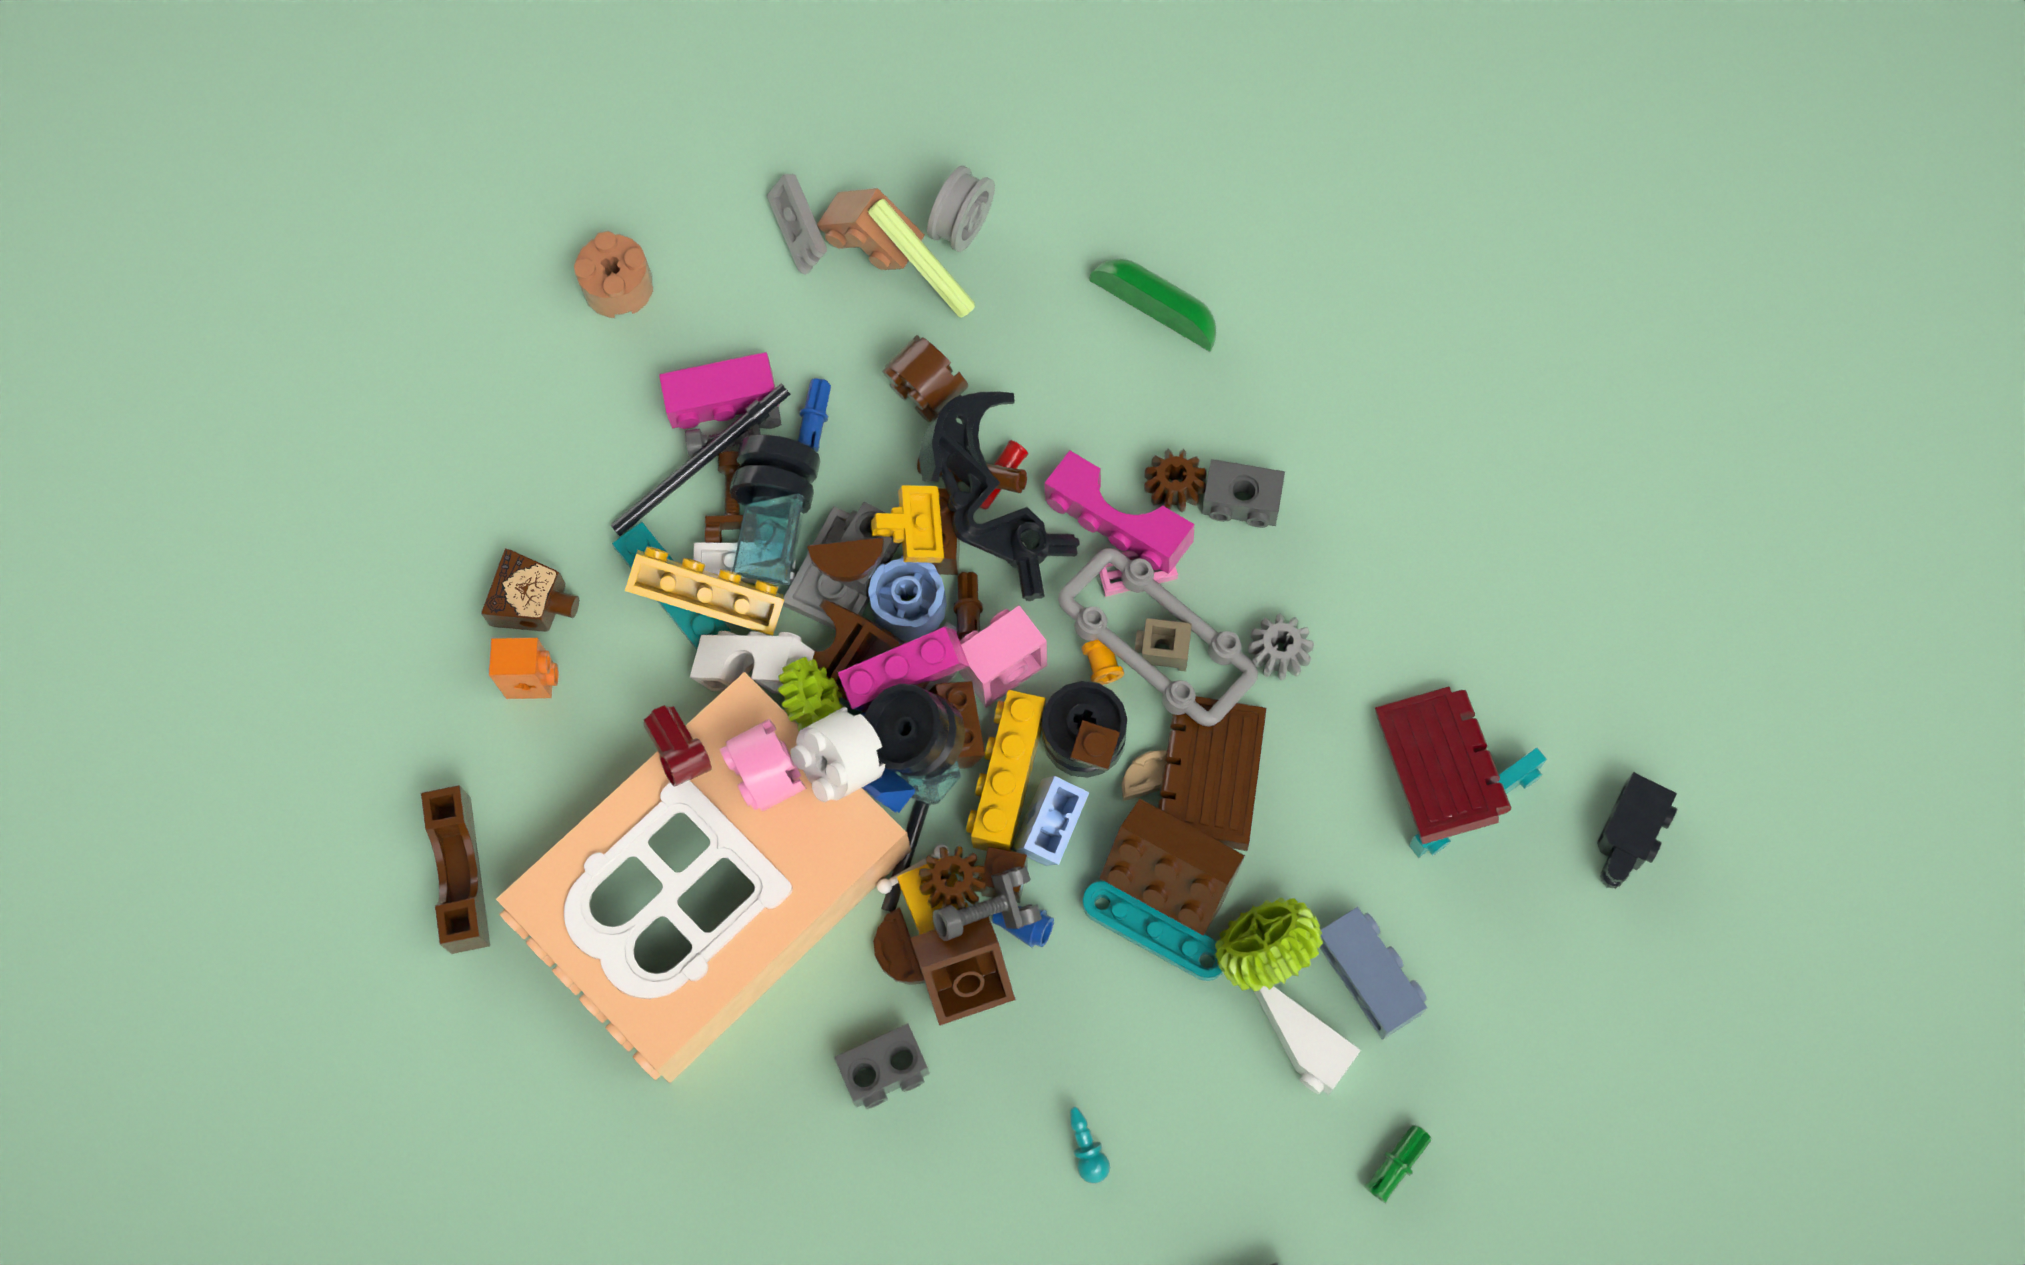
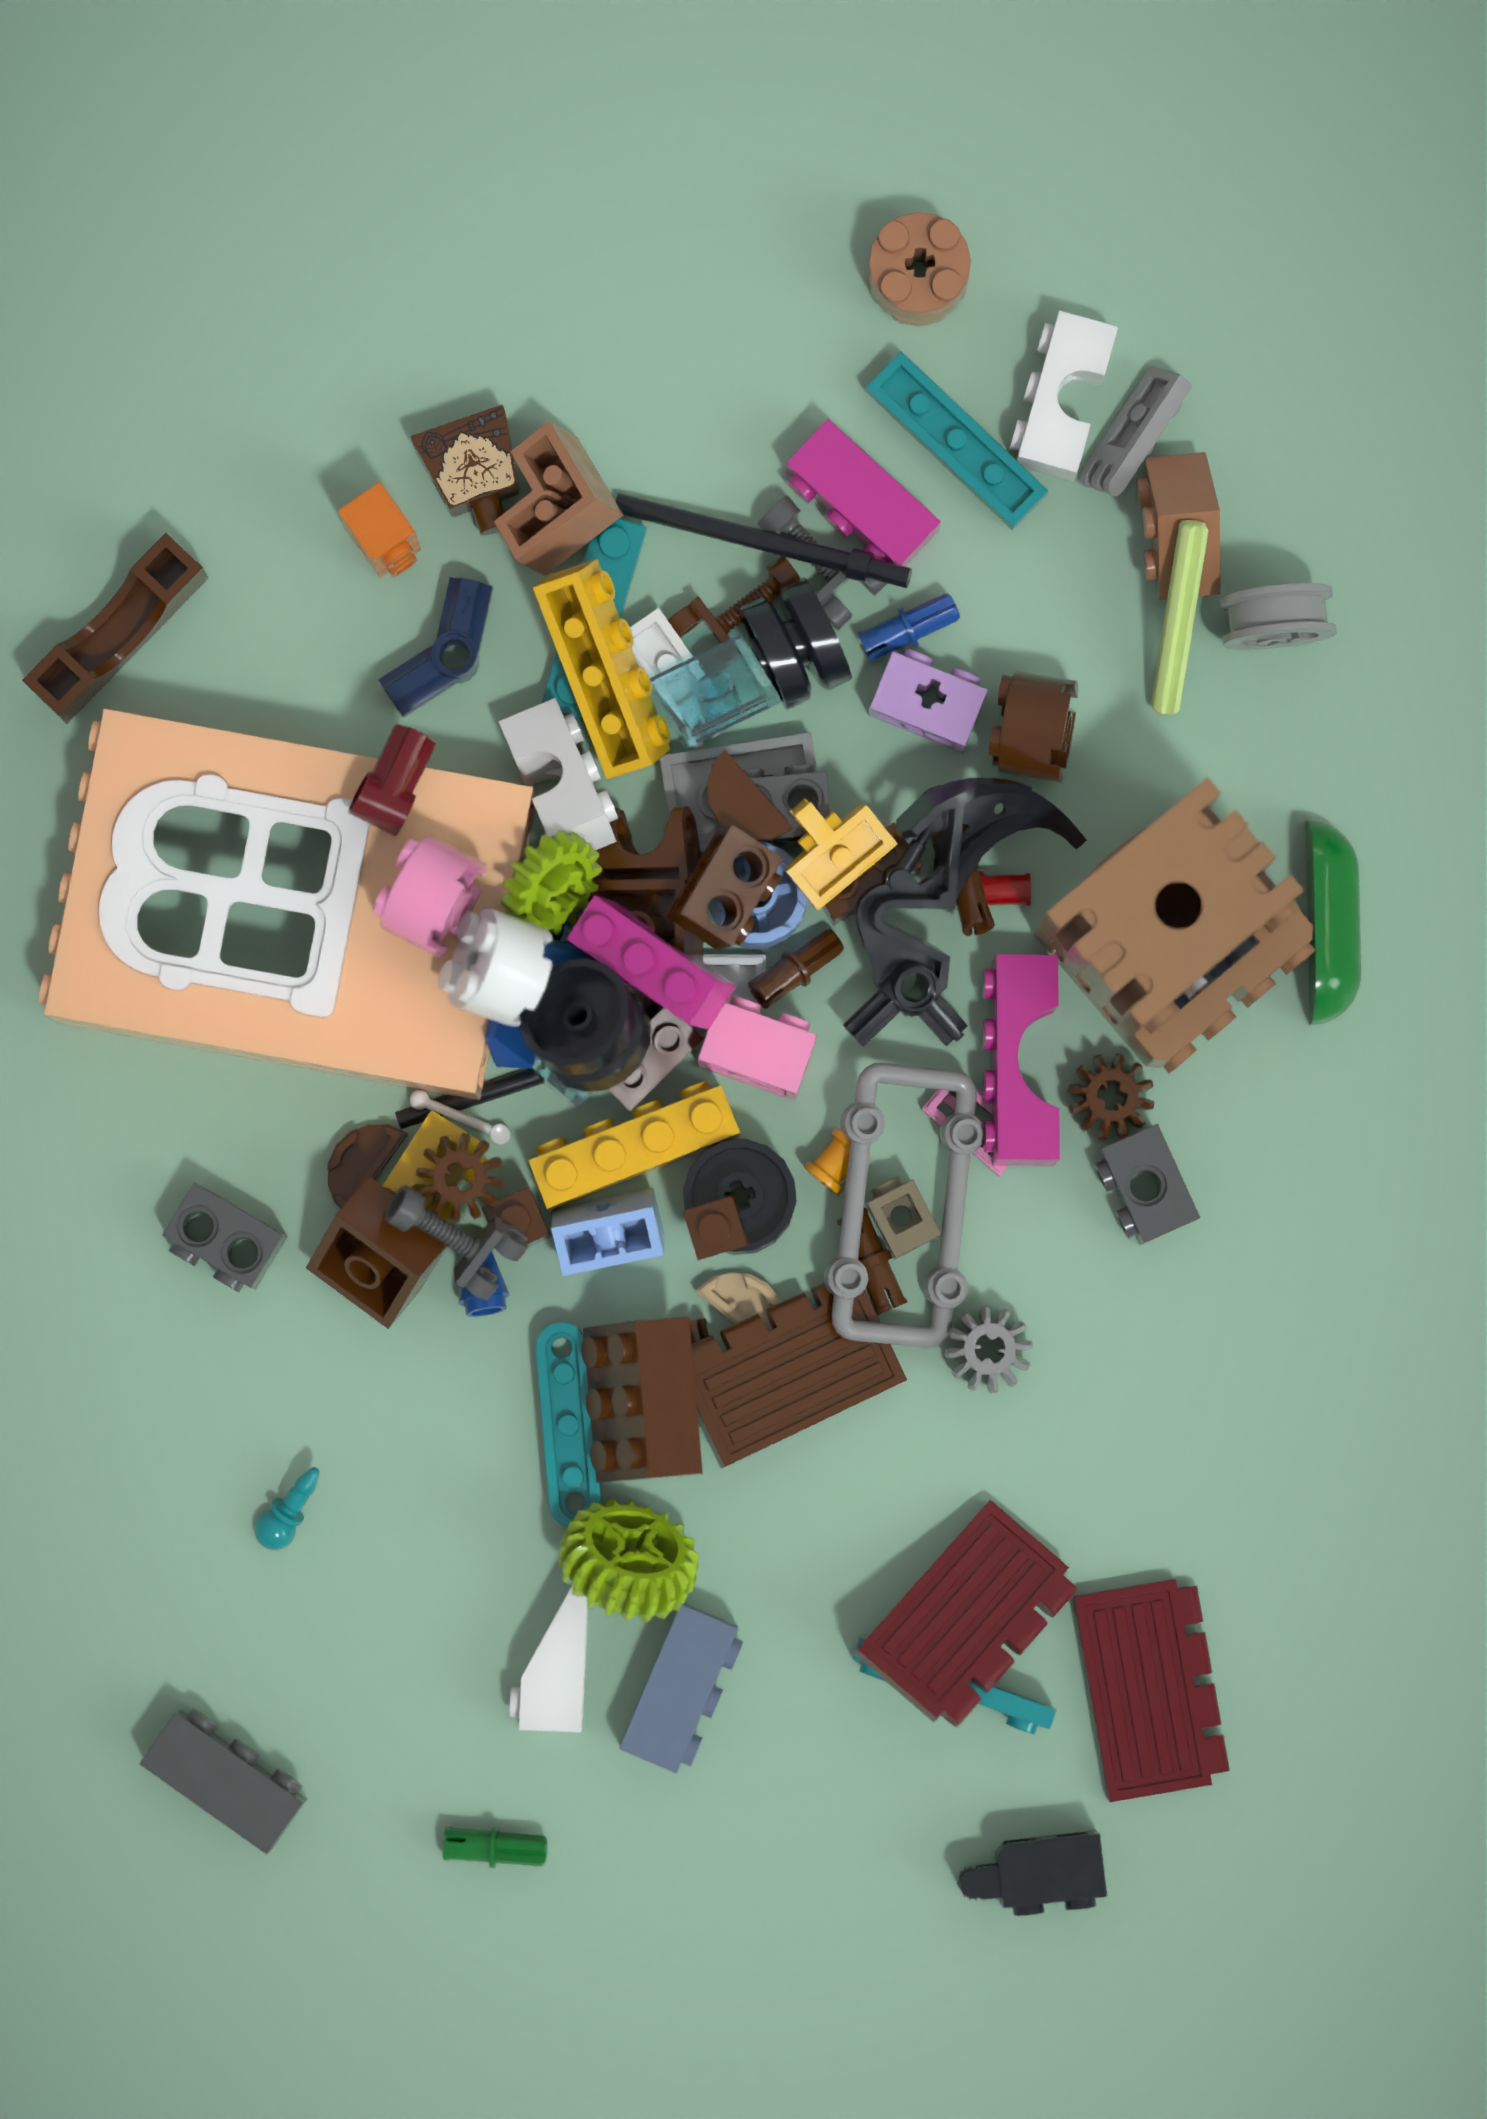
camera: 50 degrees right, 15 degrees up
(593, 555) = (566, 501): none -> nougat brick
(617, 665) = (460, 625): none -> dark blue piece
(727, 321) = (956, 440): none -> teal plate
(764, 269) = (1074, 351): none -> white arch
(857, 447) = (942, 723): none -> lavender brick
(884, 599) = (716, 880): none -> reddish brown brick
(1104, 364) = (1178, 929): none -> medium nougat piece
(1203, 685) = (878, 1268): none -> reddish brown pin
(1554, 695) = (1145, 1689): none -> dark red hinge

